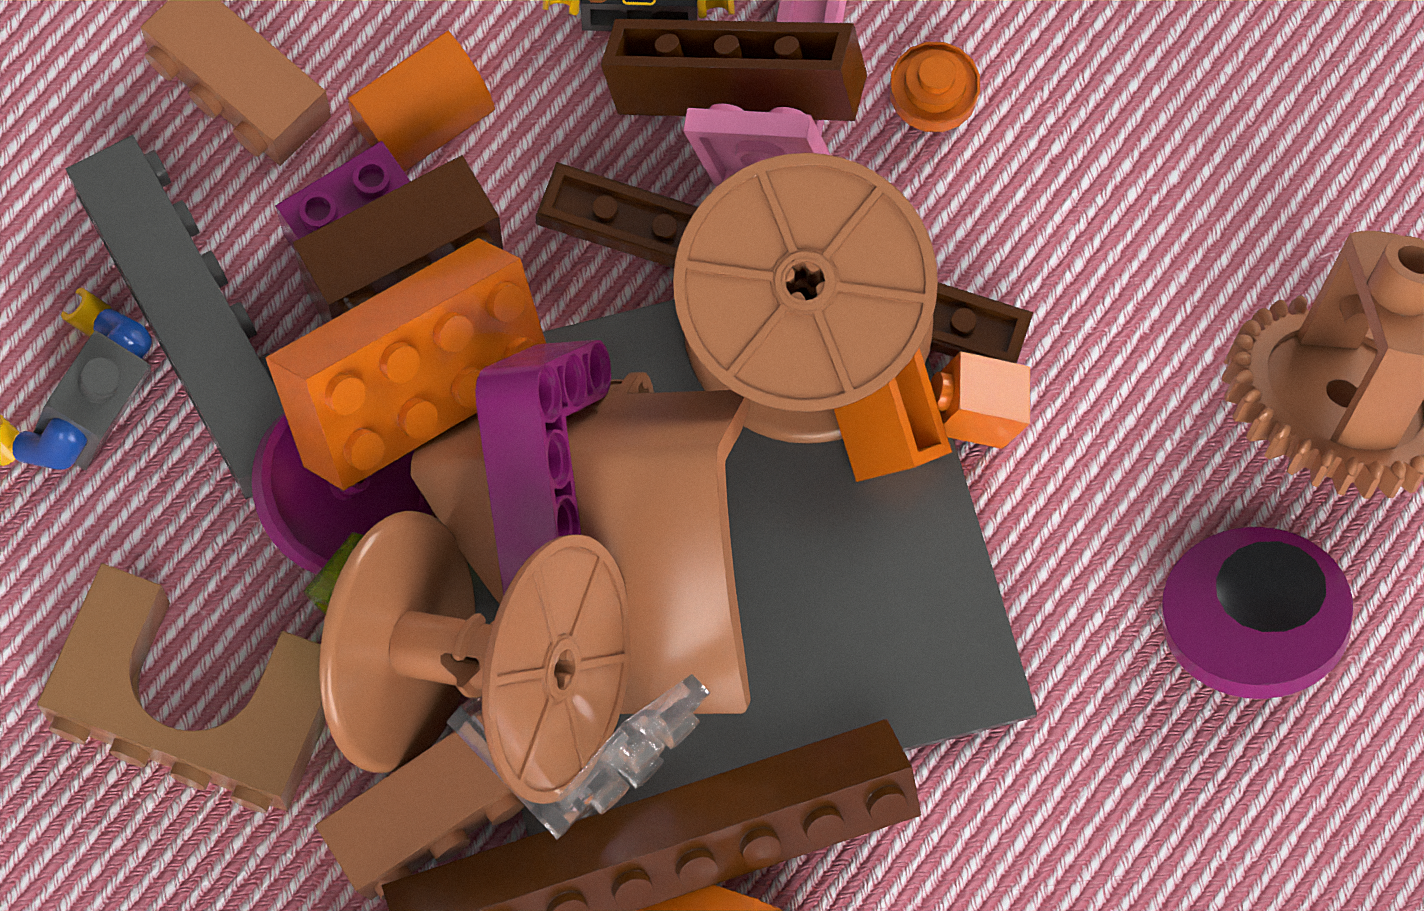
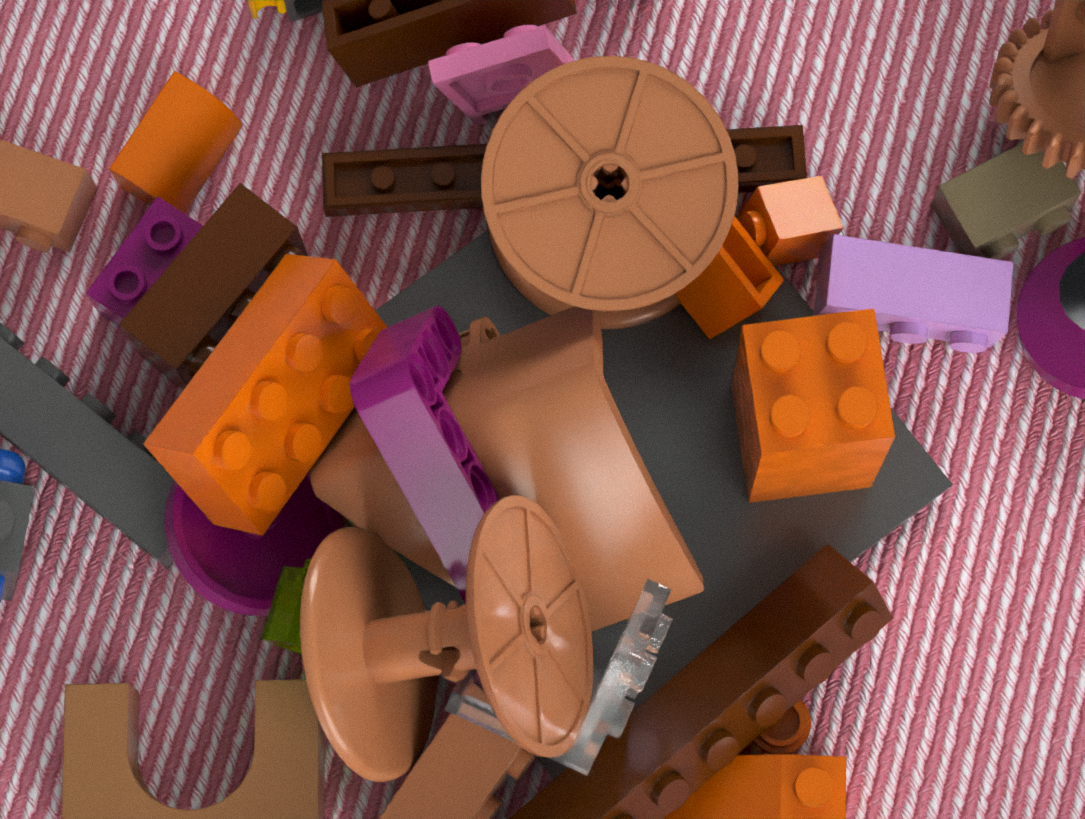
camera: 15 degrees left, 5 degrees up
(775, 884) = (787, 733): none -> orange plate
(915, 572) = (811, 405): none -> orange brick
(1073, 514) = (917, 291): none -> lavender brick
(1201, 464) = (1003, 202): none -> dark tan brick

